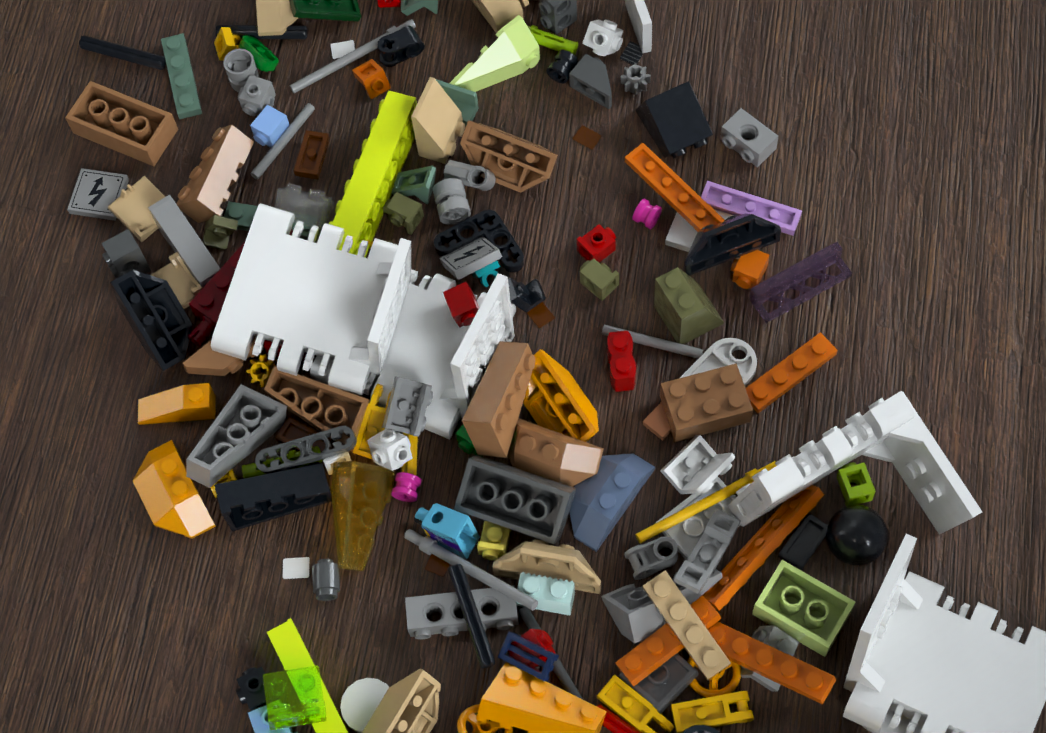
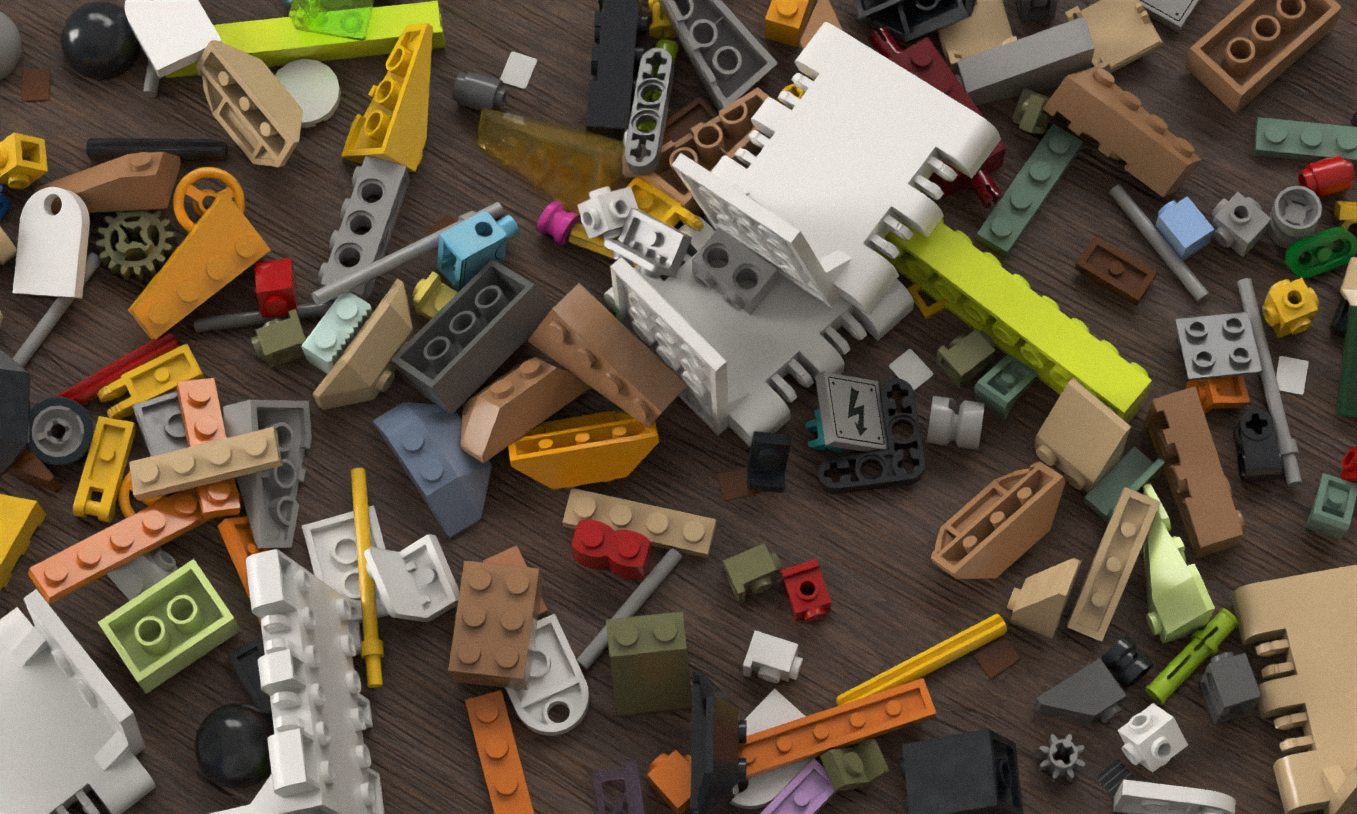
camera: 110 degrees right, 5 degrees up
(207, 65) = (1327, 176): none -> red brick
(302, 55) = (1290, 307): none -> yellow brick
(308, 207) = (1016, 217): clear brick -> none
(344, 81) = (1217, 346): none -> hinge
(363, 627) = (398, 114): none -> yellow wedge
(401, 346) = (741, 265): none -> light grey brick
(422, 246) = (911, 369): none -> white sticker
(438, 60) = (1194, 472): none -> medium nougat wedge
(461, 304) = (763, 360): red brick -> none
(469, 175) = (982, 467): light grey piece -> none
(471, 616) = (343, 228): black axle -> none
(507, 86) = (1113, 564): none -> tan plate
(540, 101) = (1043, 598): none -> tan wedge
(547, 665) = (261, 272): dark blue tile -> none
(566, 631) = (280, 340): none -> olive brick
(593, 358) = (662, 526): none -> tan plate
(611, 169) = (930, 659): none -> yellow axle
(647, 214) = (825, 679): dark pink wheel -> none
(648, 247) = (772, 658): none -> white brick
(650, 558) = (327, 473): light grey piece -> none
(694, 177) = (854, 766): none -> olive bracket
(707, 552) = (286, 528): light grey slope -> none

